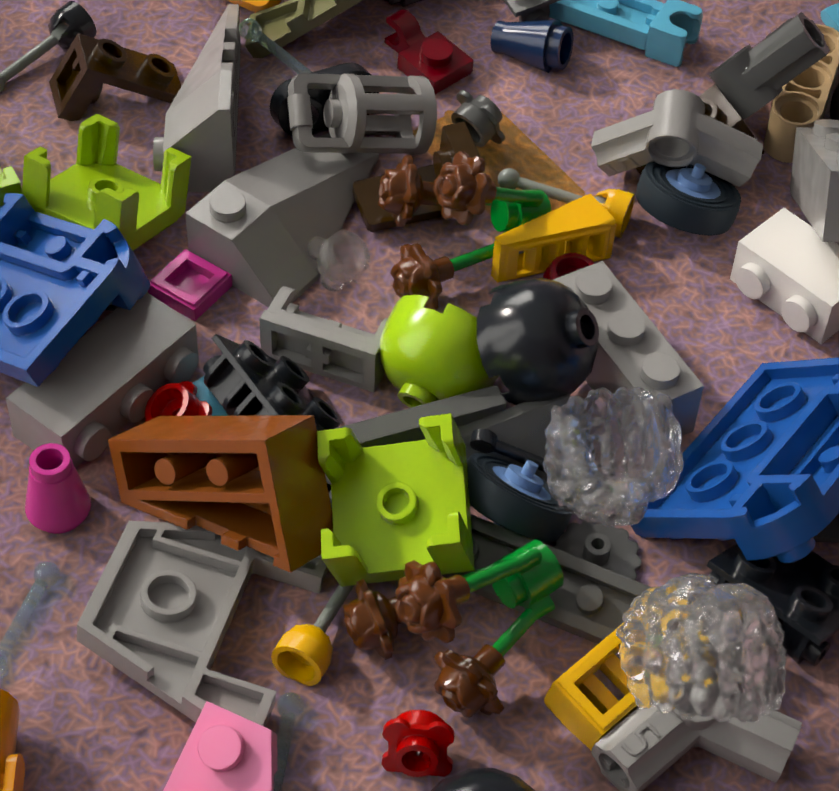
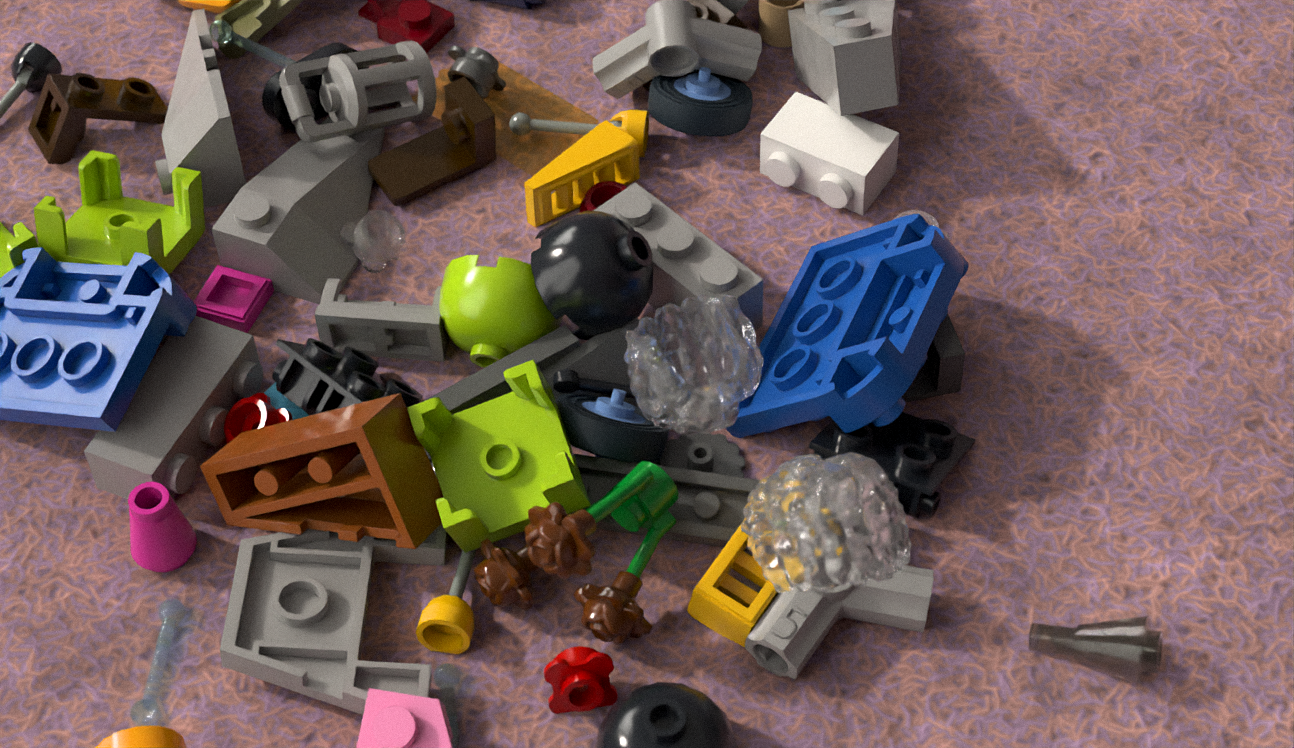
camera: 10 degrees left, 0 degrees up
(462, 193) = (483, 147): reddish brown plant -> none

